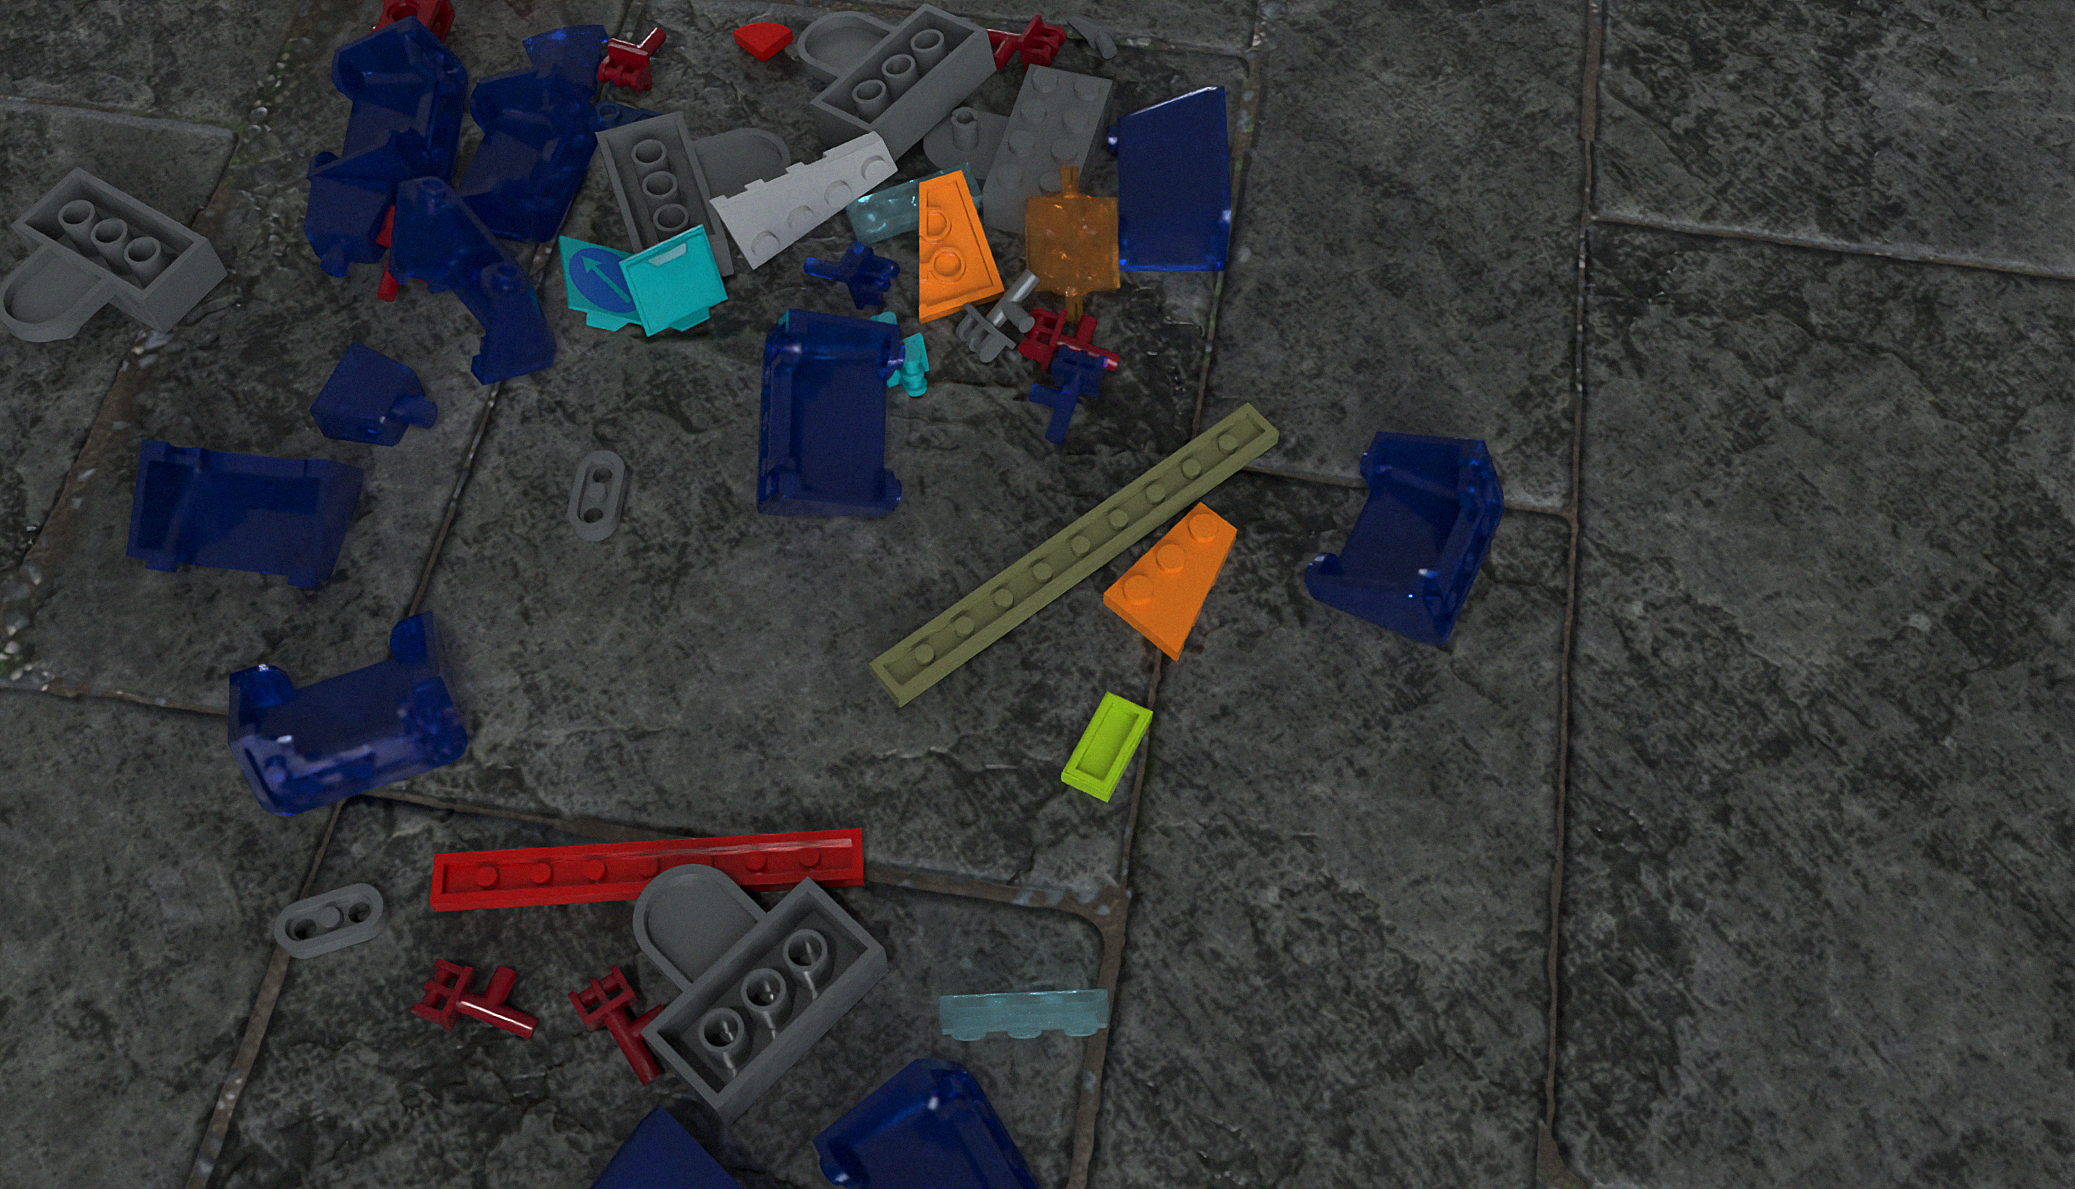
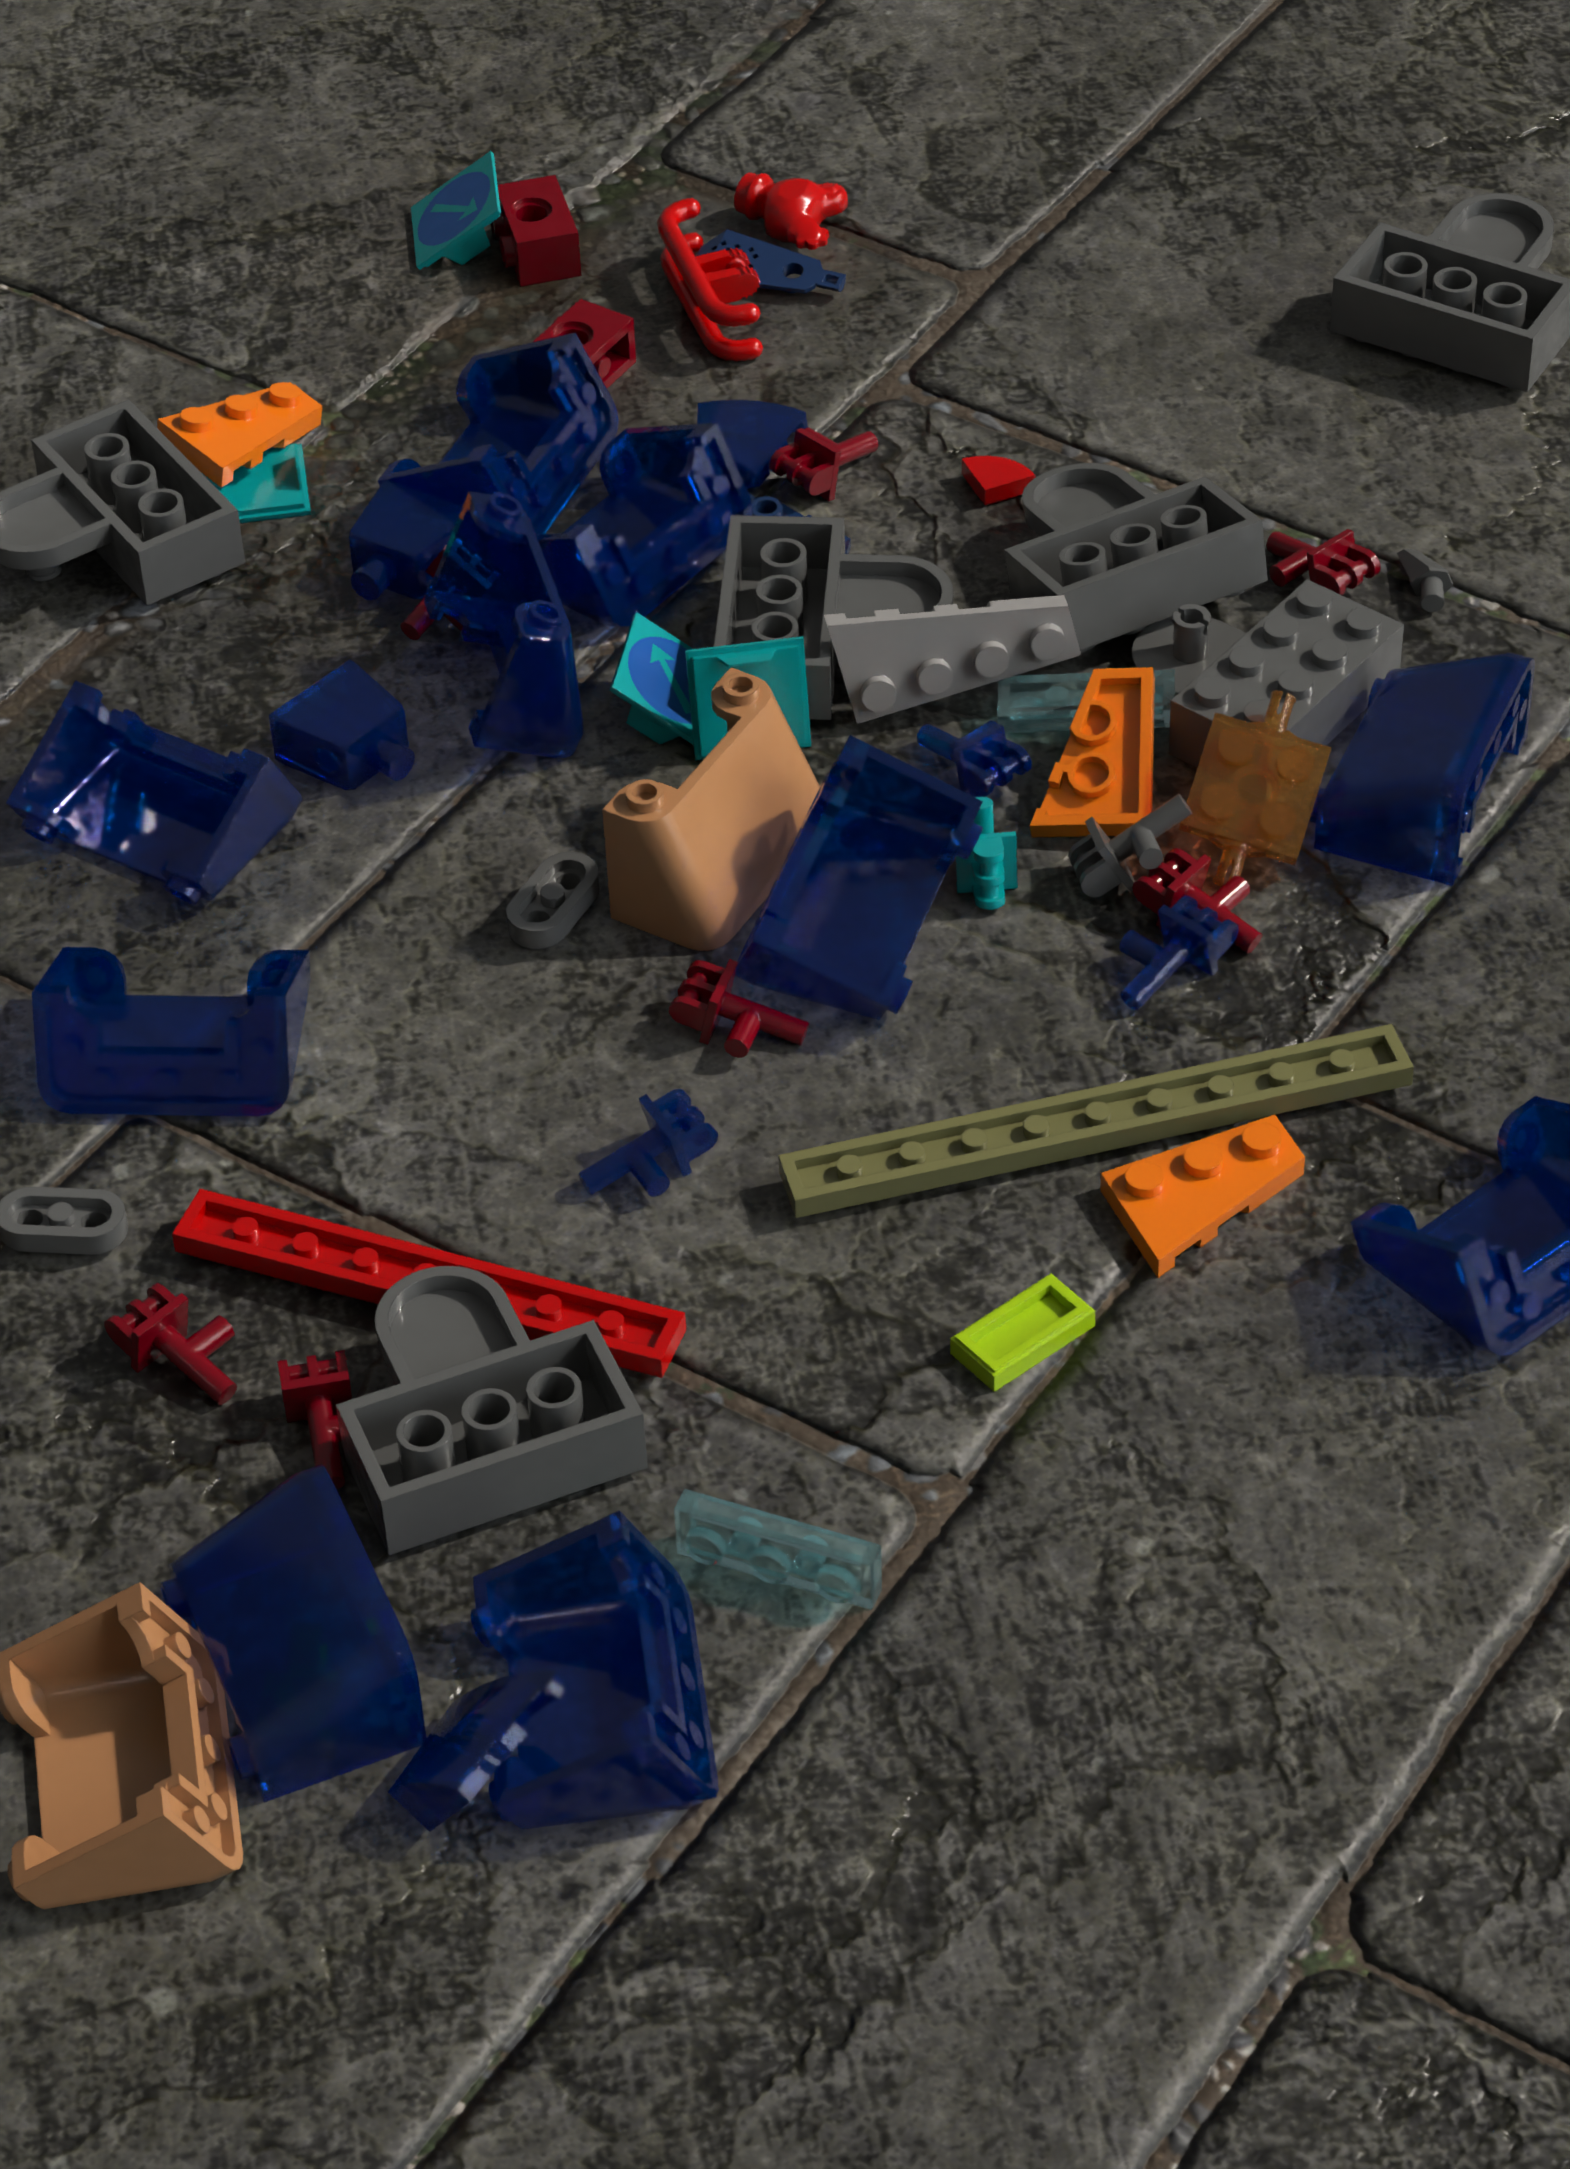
camera: 25 degrees right, 15 degrees down
(175, 162) = (241, 428): none -> orange wing
(206, 200) = (271, 488): none -> teal piece
(702, 430) = (708, 853): none -> medium nougat windscreen
(754, 544) = (708, 997): none -> dark red arm
(775, 675) = (674, 1129): none -> clear blue arm

